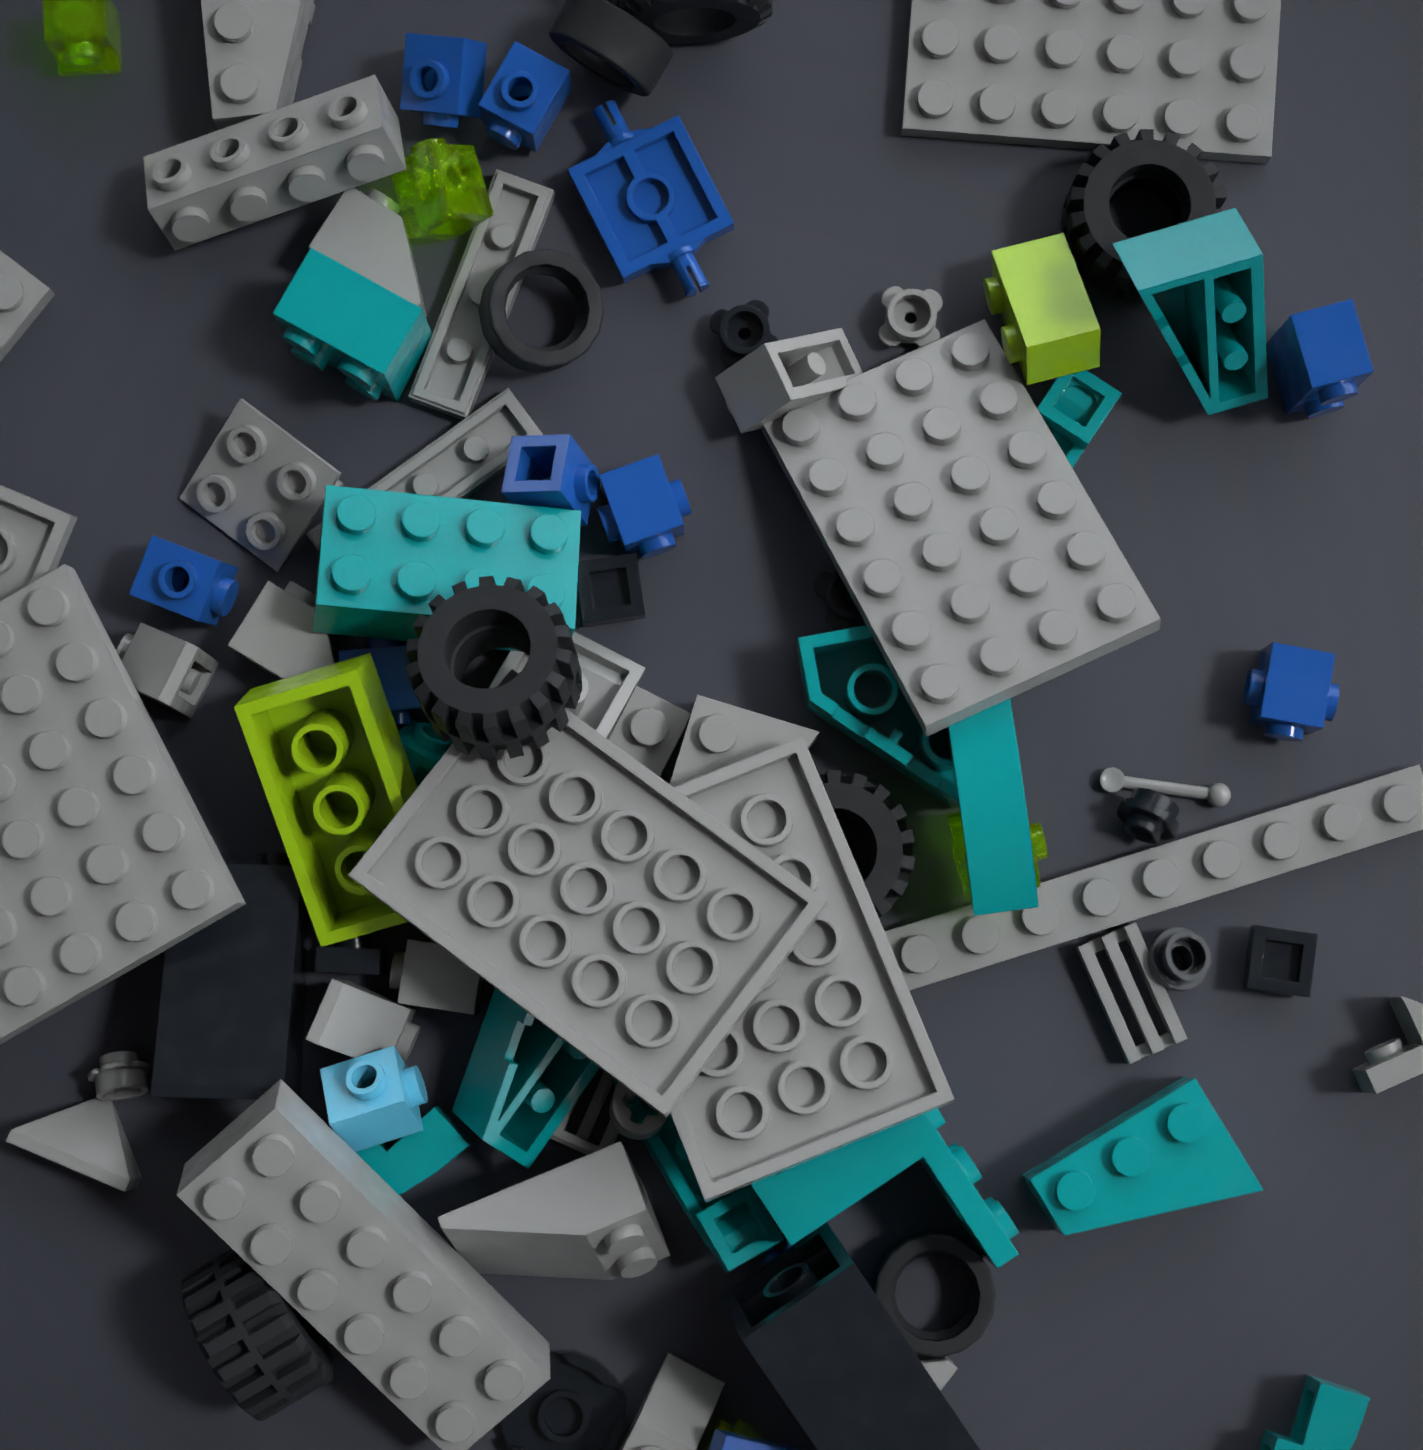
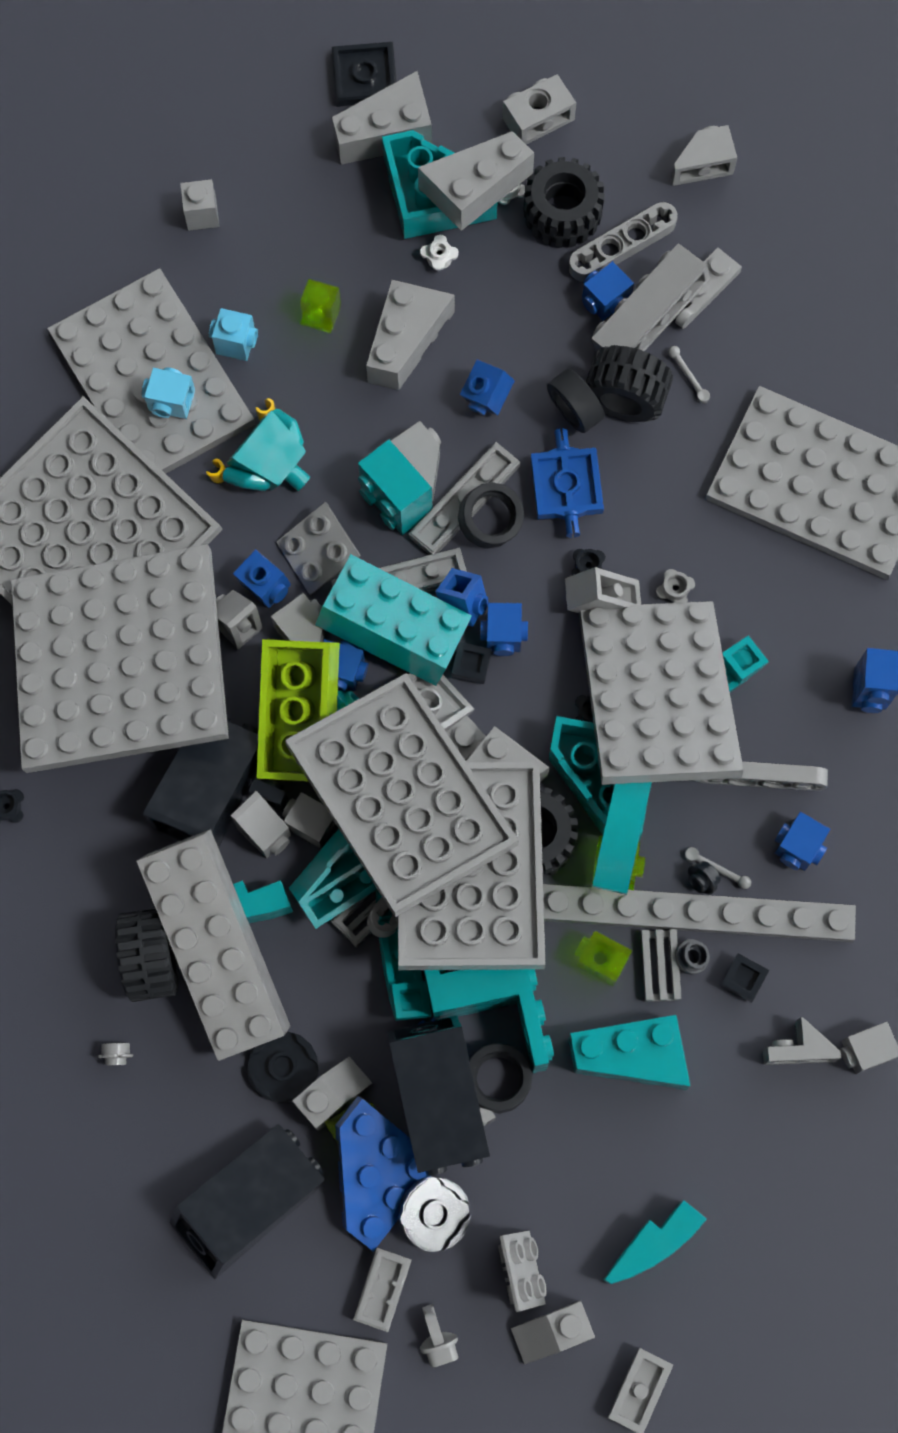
camera: 25 degrees right, 10 degrees down
(85, 1140) = (100, 831): light grey slope -> none
(99, 347) = (266, 454): none -> teal torso
(120, 1076) = (129, 808): light grey plate -> none
(274, 162) = (387, 397): light grey brick -> none
(373, 1098) = (252, 862): medium azure brick -> none
(441, 190) = (464, 440): clear neon green brick -> none
(484, 621) = (393, 643): black tyre -> none
(524, 98) = (523, 412): blue brick -> none
(564, 1223) = (321, 962): light grey slope -> none
(1043, 309) = (744, 605): lime brick -> none
(1054, 1021) = (615, 953): none -> clear neon green brick
(1127, 165) = (820, 555): black tyre -> none
(1208, 302) = (826, 628): teal wedge -> none
(1224, 584) = (778, 776): none -> light grey beam

